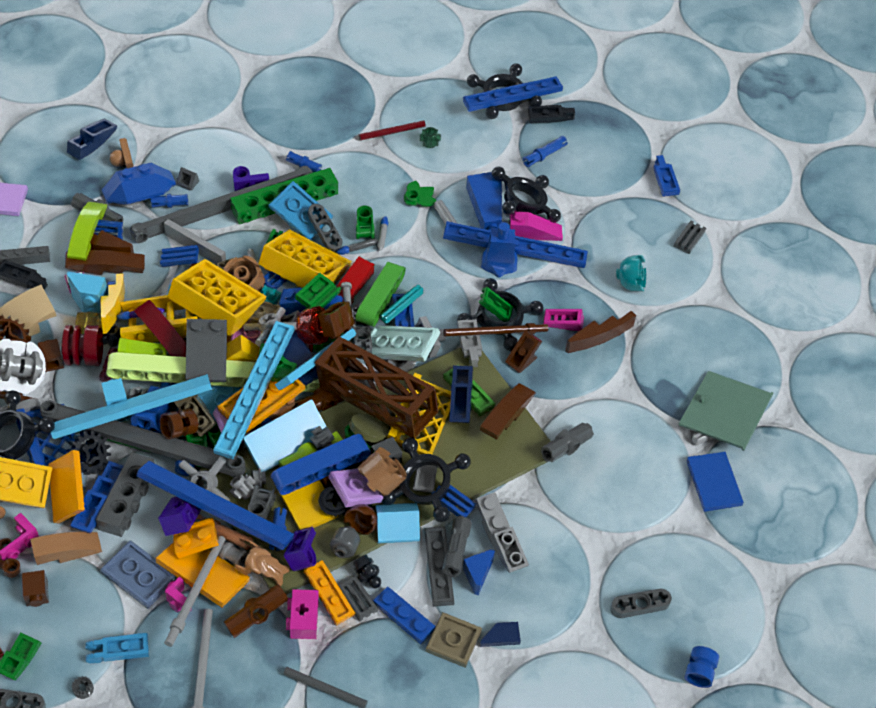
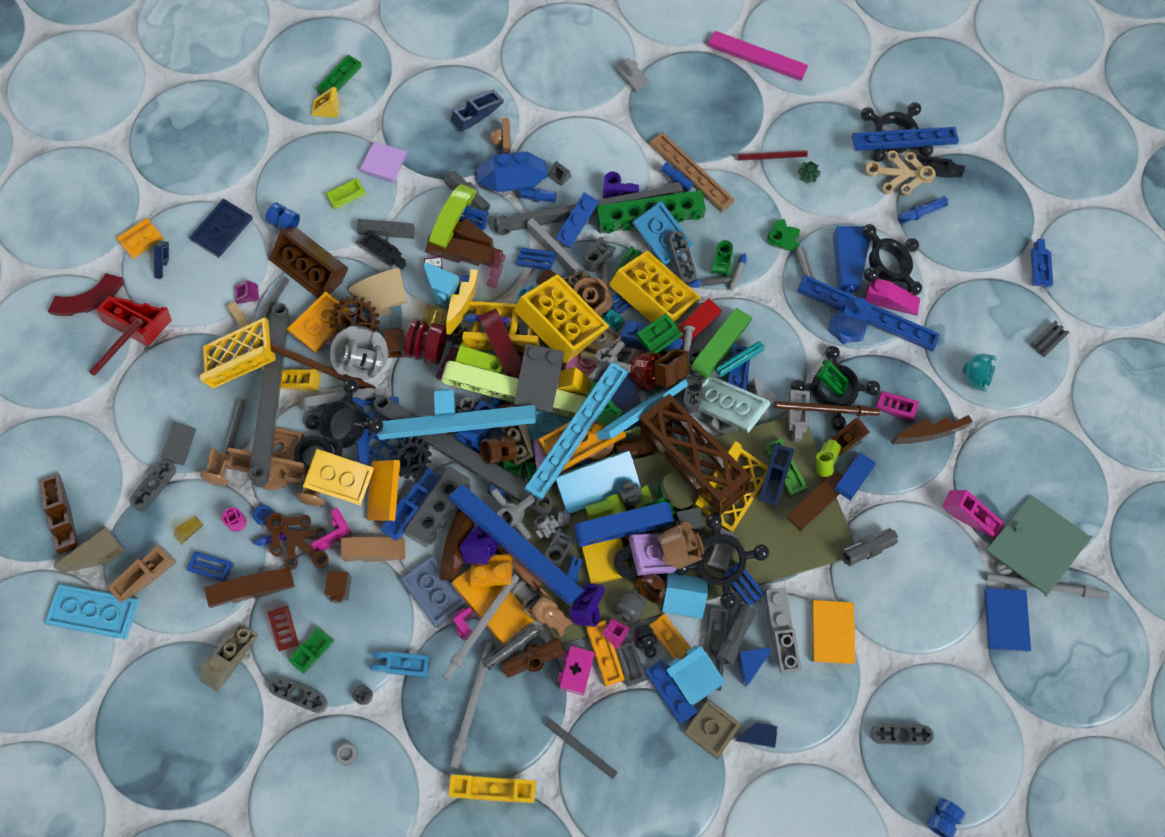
camera: 15 degrees right, 15 degrees up
(141, 272) = (496, 270): none -> clear pink axle
(151, 529) = (452, 555): none -> reddish brown slope
(213, 214) = (577, 220): none -> blue plate
(234, 600) = (505, 650): none -> dark grey pin
(237, 83) = (631, 74): none -> light grey tile
(241, 241) = (600, 252): none -> dark grey piece
(303, 148) = (702, 181): none -> medium nougat tile
(336, 569) = (615, 632): none -> dark pink slope
(358, 50) = (758, 55): none -> dark pink tile
(399, 570) = (670, 637): none -> light orange tile
(424, 588) = (695, 674): none -> medium azure bracket
(506, 373) = (827, 457): none -> lime piece
(517, 124) = (903, 172): none -> tan plant
(537, 384) = (855, 476): none -> blue tile
(552, 527) = (833, 632): none -> light orange tile
(657, 394) = (972, 512): none -> dark pink slope
(780, 441) = (1085, 591): none -> light grey bar

